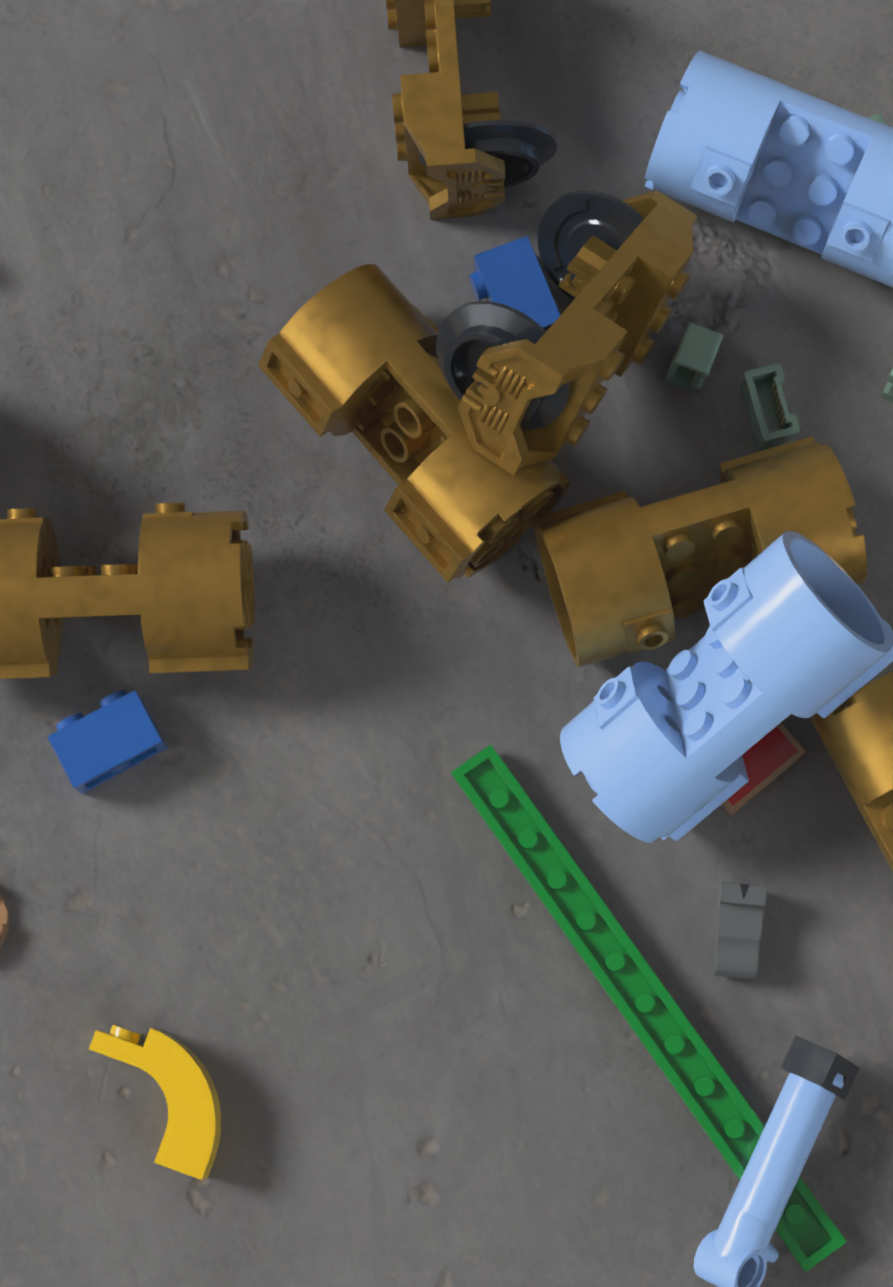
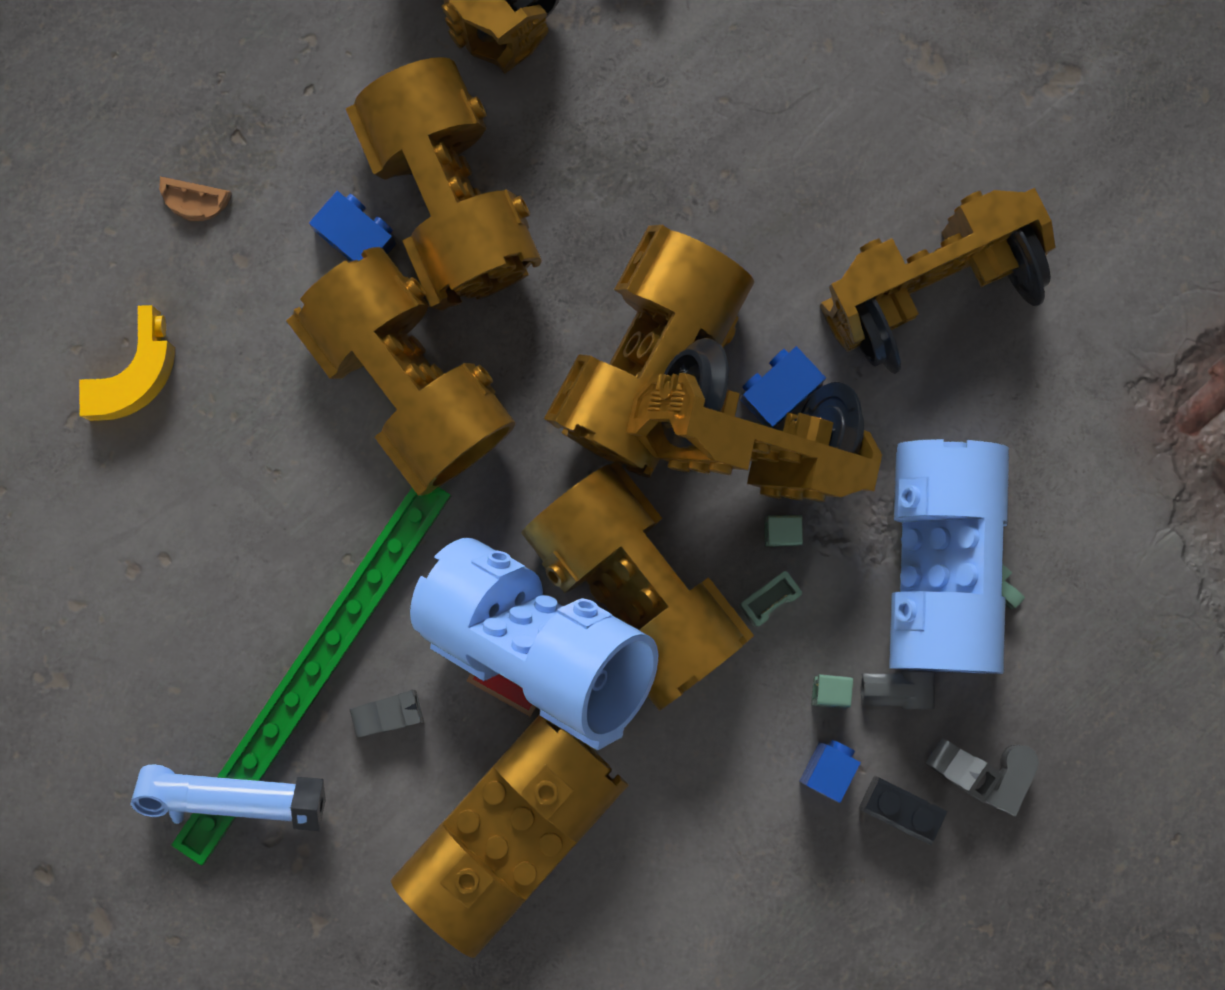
camera: 65 degrees right, 5 degrees up
(226, 763) = (362, 319): none -> pearl gold cylinder

